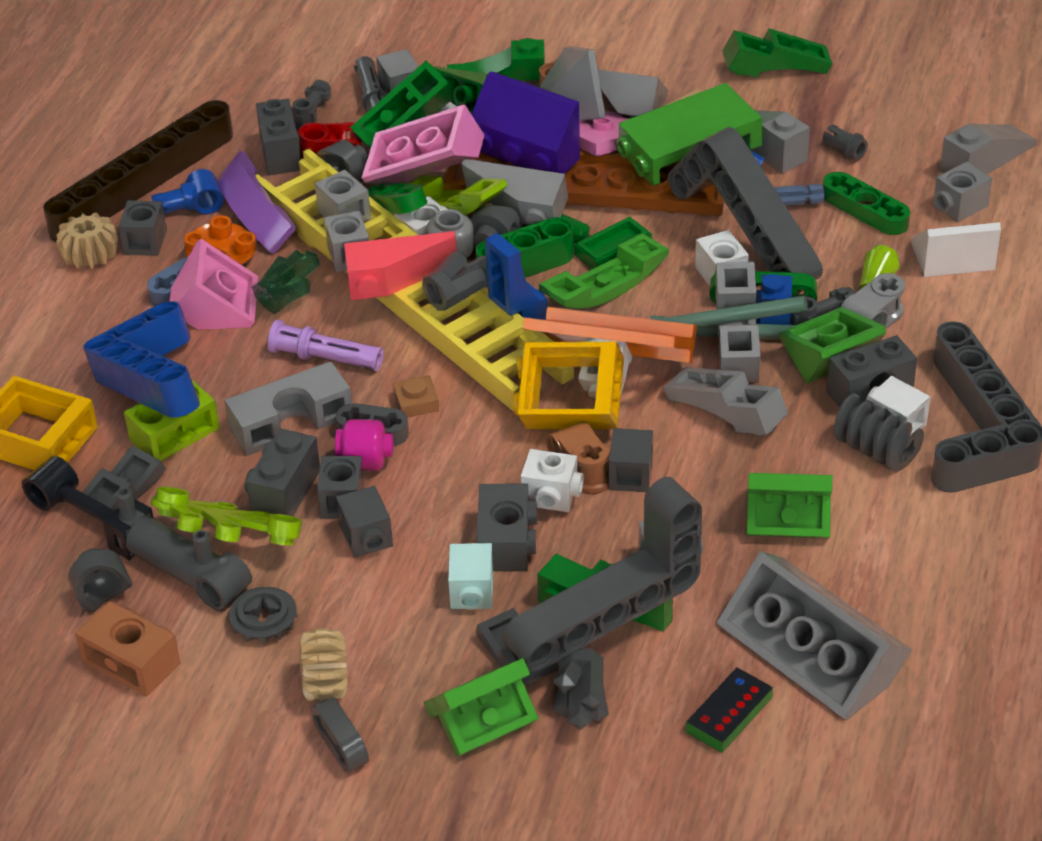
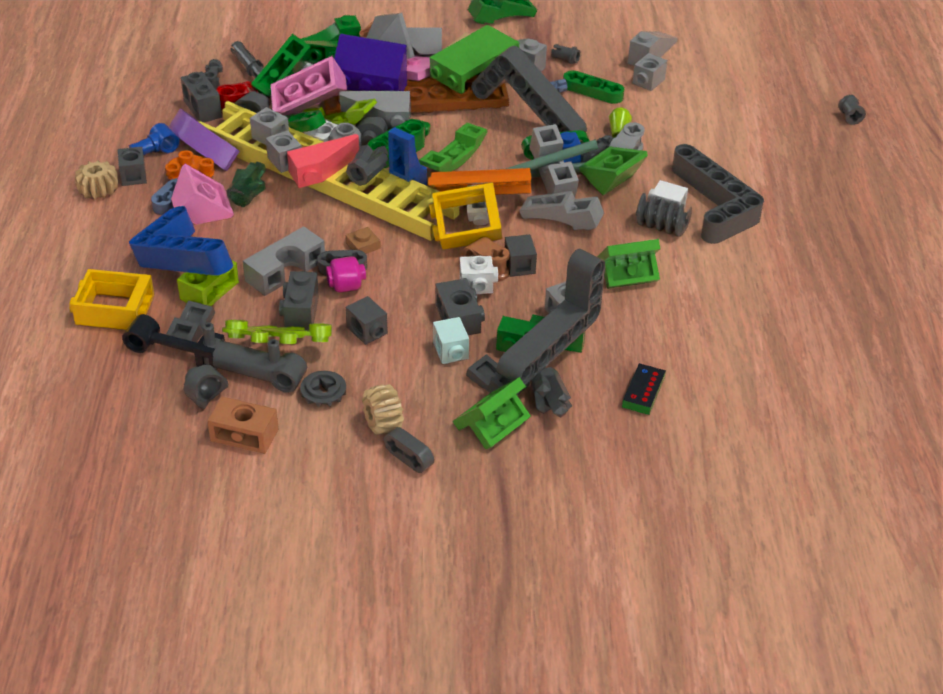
camera: 20 degrees left, 0 degrees up
(143, 166) = (113, 129): dark brown beam -> none
(309, 343) = (278, 220): lavender pin -> none
(337, 477) = (337, 297): dark grey brick -> none
(394, 68) = (263, 47): light grey brick -> none
(603, 245) = (444, 132): green tile -> none
(717, 249) = (518, 128): white brick -> none
(812, 635) = (676, 336): light grey slope -> none
(869, 367) = (641, 180): dark grey brick -> none
(957, 249) = (661, 104): white slope -> none

